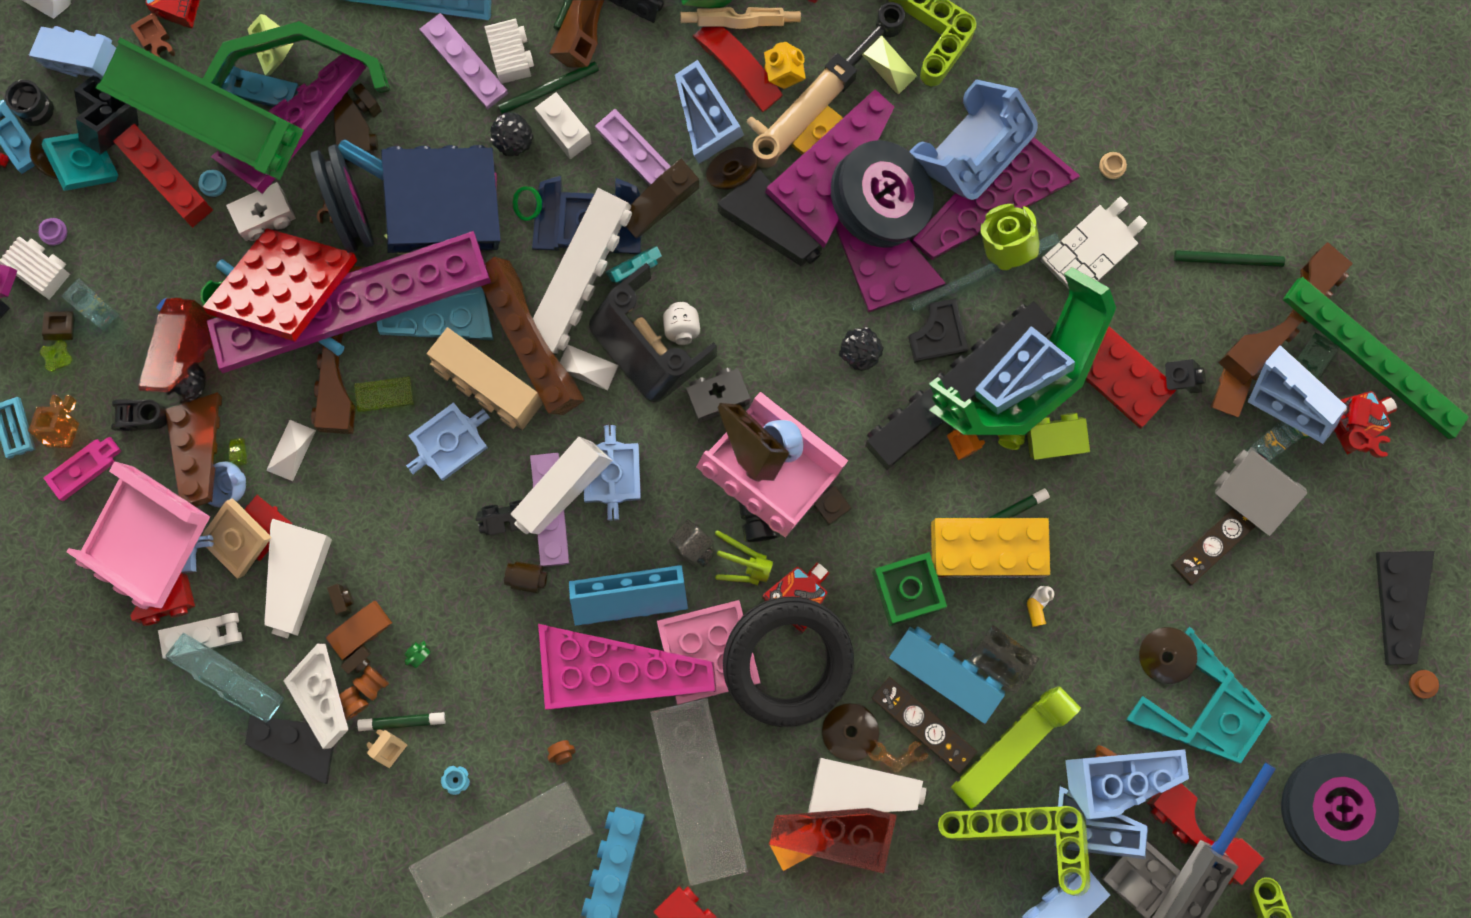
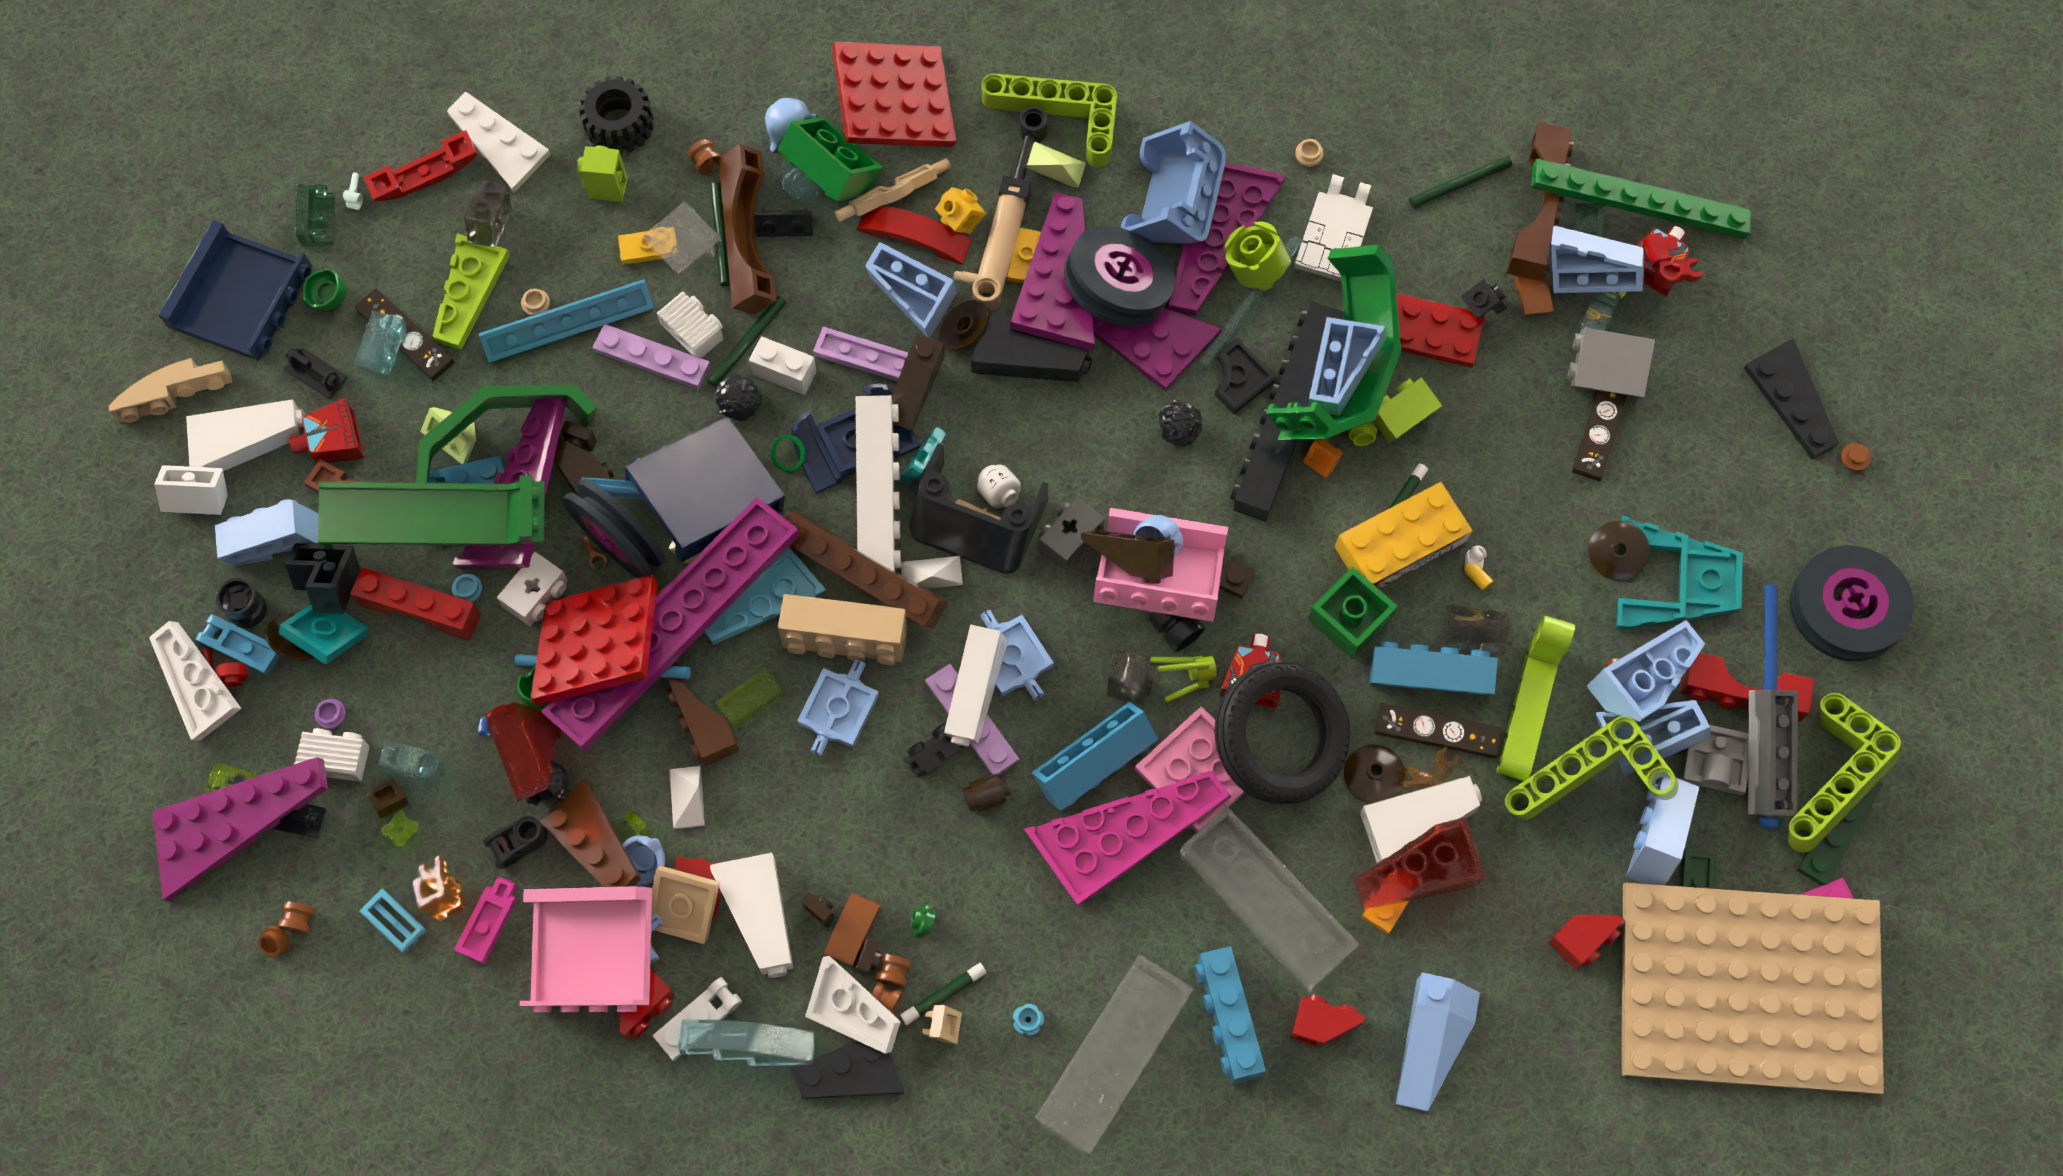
camera: 25 degrees left, 10 degrees down
(561, 752) = (1115, 937): dark orange plate -> none

